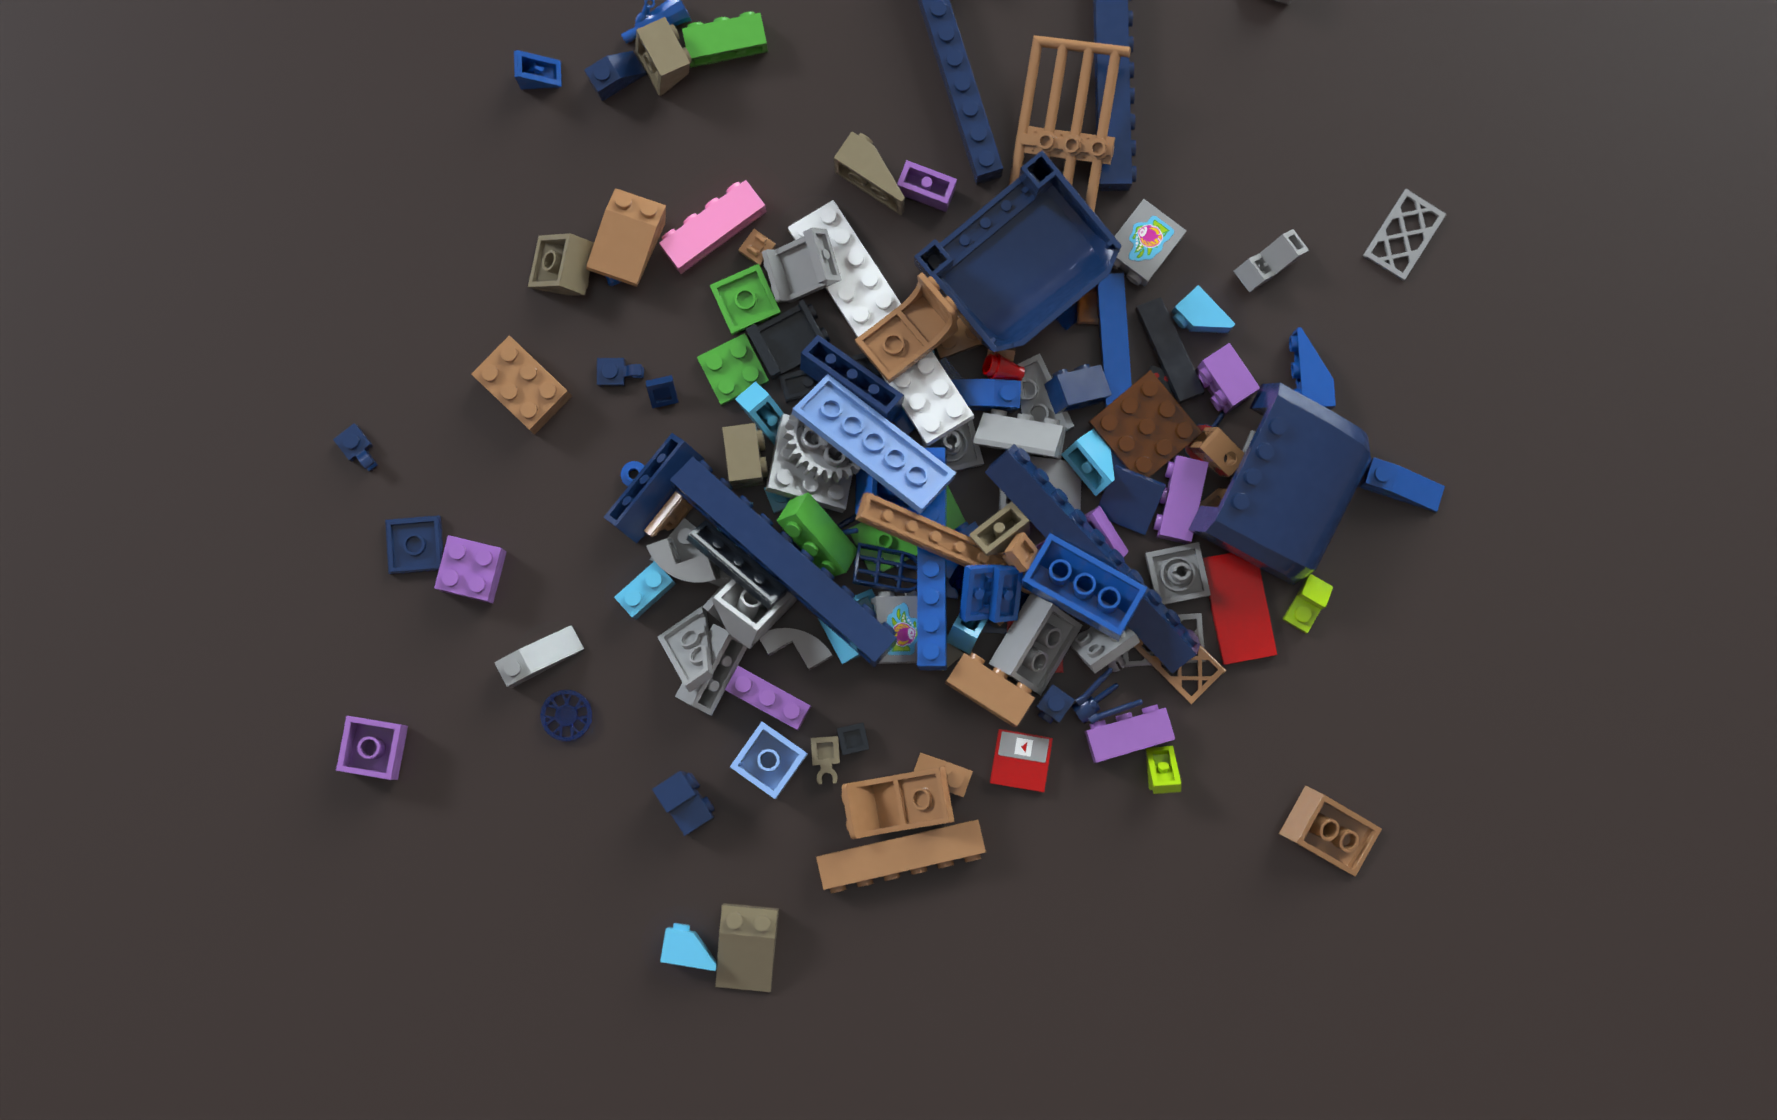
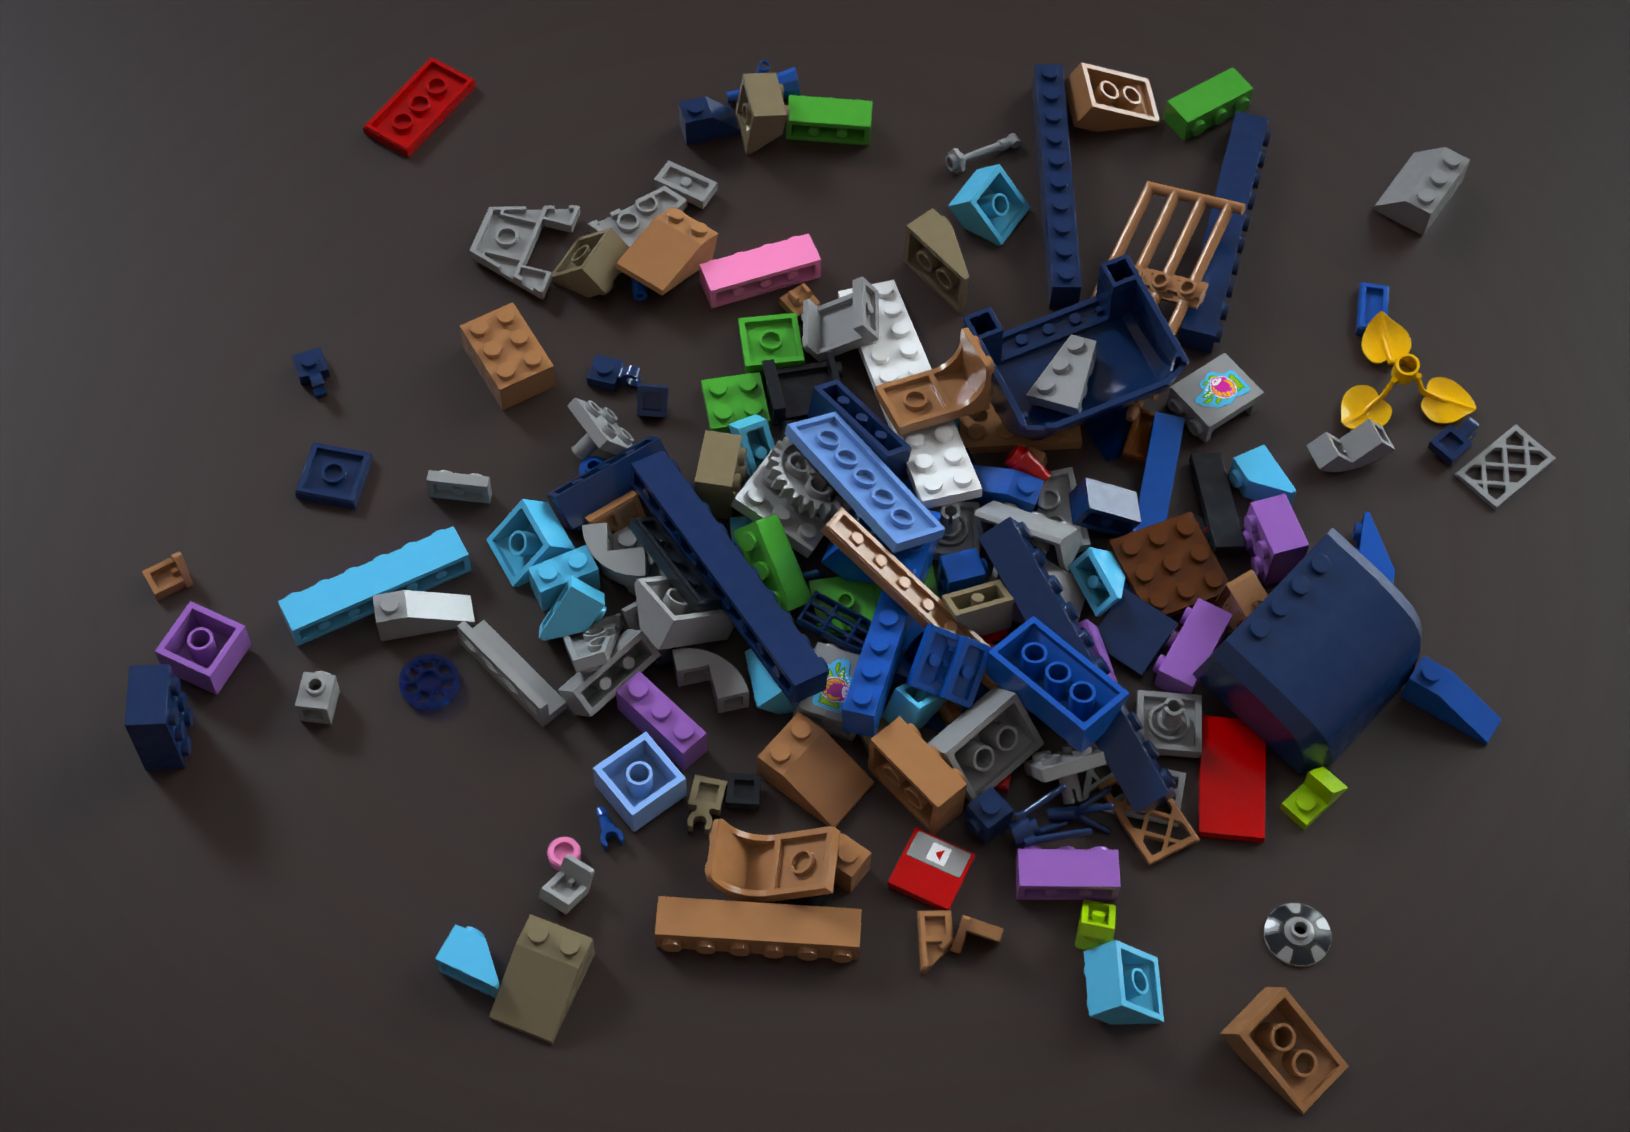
camera: 15 degrees right, 25 degrees down
(313, 684) = (168, 576): none -> medium nougat tile
(345, 133) = (419, 107): none -> red tile
(363, 829) = (158, 717): none -> dark blue brick
(470, 569) = (383, 508): medium lavender brick -> none
(478, 259) = (509, 238): none -> light grey wing
(481, 759) = (317, 697): none -> light grey brick
(490, 643) = (349, 595): none -> medium azure brick
(514, 528) = (458, 486): none -> light grey plate
(536, 71) = (629, 99): blue slope -> none
(585, 208) = (634, 219): none -> light grey wing
(605, 563) = (528, 538): none -> medium azure slope
(617, 151) = (688, 184): none -> light grey plate
(629, 440) = (600, 428): none -> light grey plate
(630, 686) = (511, 671): none -> light grey fence
(663, 623) = (573, 610): none -> medium azure slope
(684, 802) = (525, 791): dark blue brick -> none
(727, 834) = (560, 848): none -> bright pink tile
(740, 864) = (568, 885): none -> light grey bracket
(754, 801) = (607, 828): none -> blue piece
(853, 50) = (957, 160): none -> light grey piece
(896, 93) = (989, 204): none -> medium azure slope
(905, 705) = (813, 771): none -> medium nougat slope
(926, 185) = (997, 287): medium lavender brick -> none
(977, 497) = (961, 571): none -> blue brick
(1013, 277) = (1066, 377): none -> light grey wing
(1020, 552) = (993, 627): medium nougat tile -> none
(1038, 816) = (934, 937): none -> medium nougat tile
(1072, 804) = (978, 928): none -> medium nougat tile
(1121, 677) = (1084, 807): none -> dark blue plant
(1196, 817) = (1123, 985): none -> medium azure slope
(1260, 103) = (1371, 300): none -> blue tile
(1306, 732) = (1296, 948): none -> dish
(1341, 180) = (1388, 341): none -> yellow plant
(1356, 227) = (1454, 443): none -> dark blue plate

